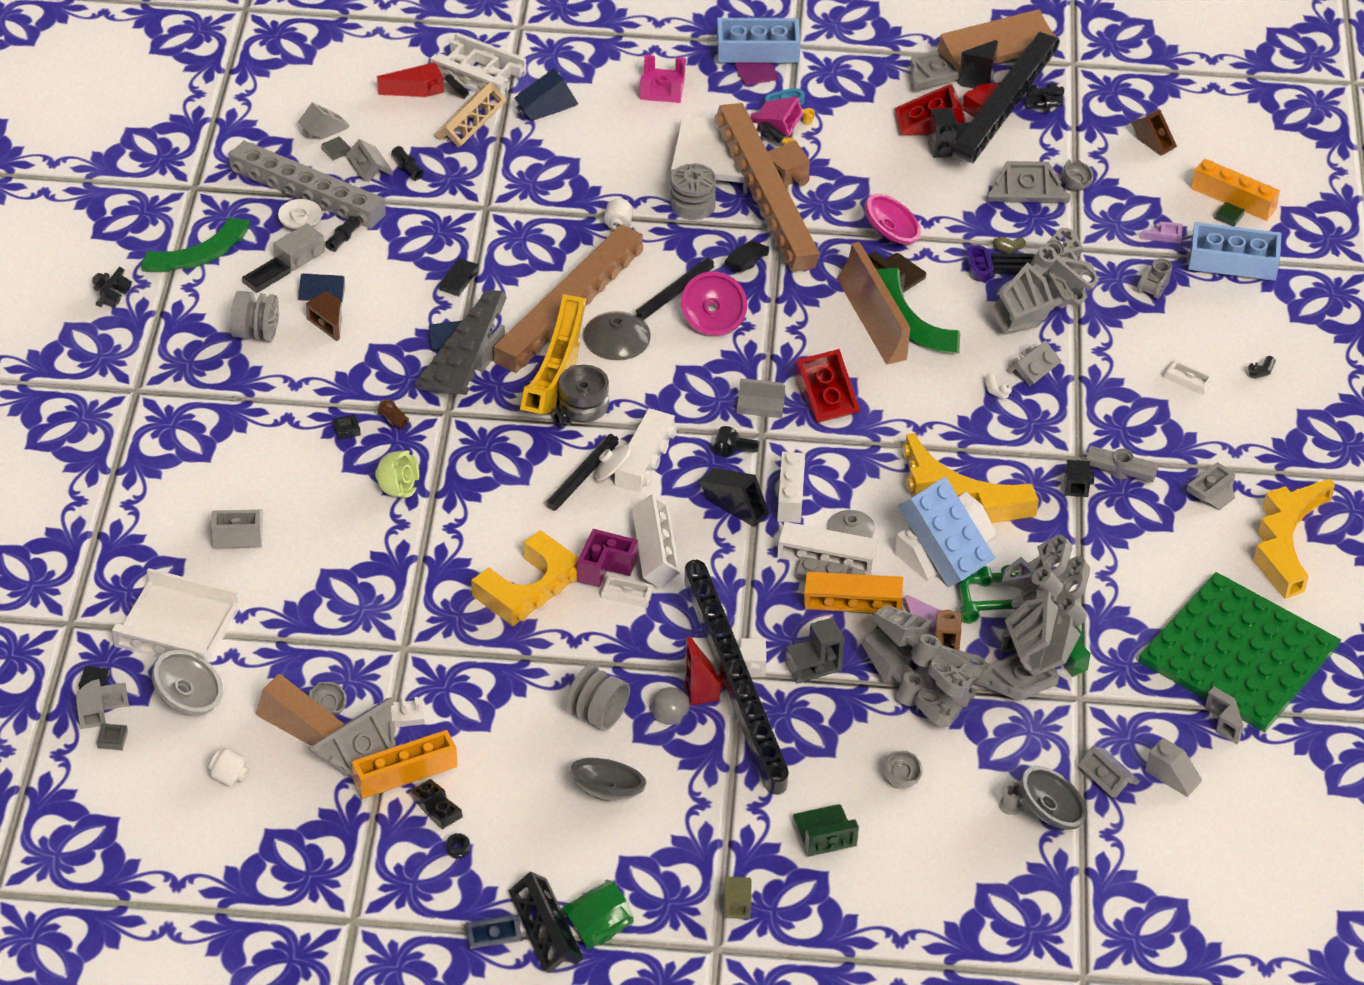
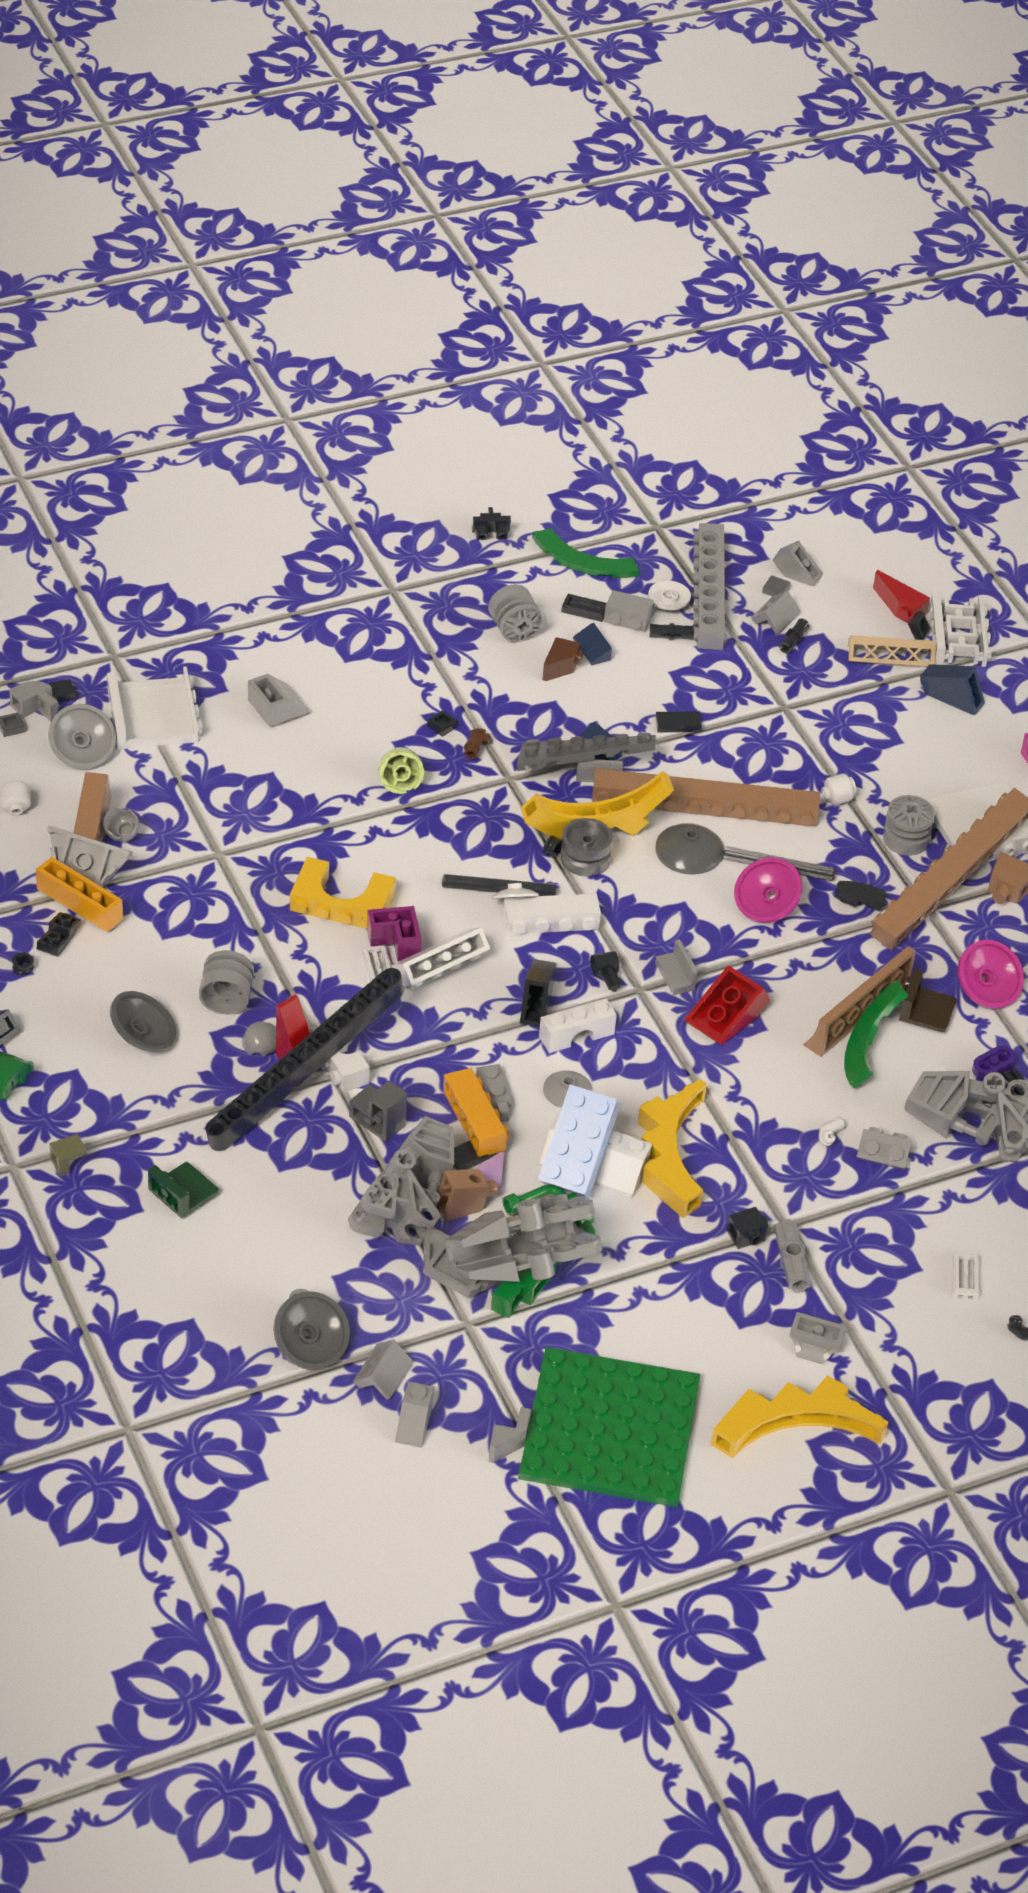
camera: 60 degrees right, 0 degrees up
(407, 712) = (141, 876): white plate -> none
(827, 545) = (521, 1077): white brick -> none
(903, 769) = (282, 1215): light grey hair -> none

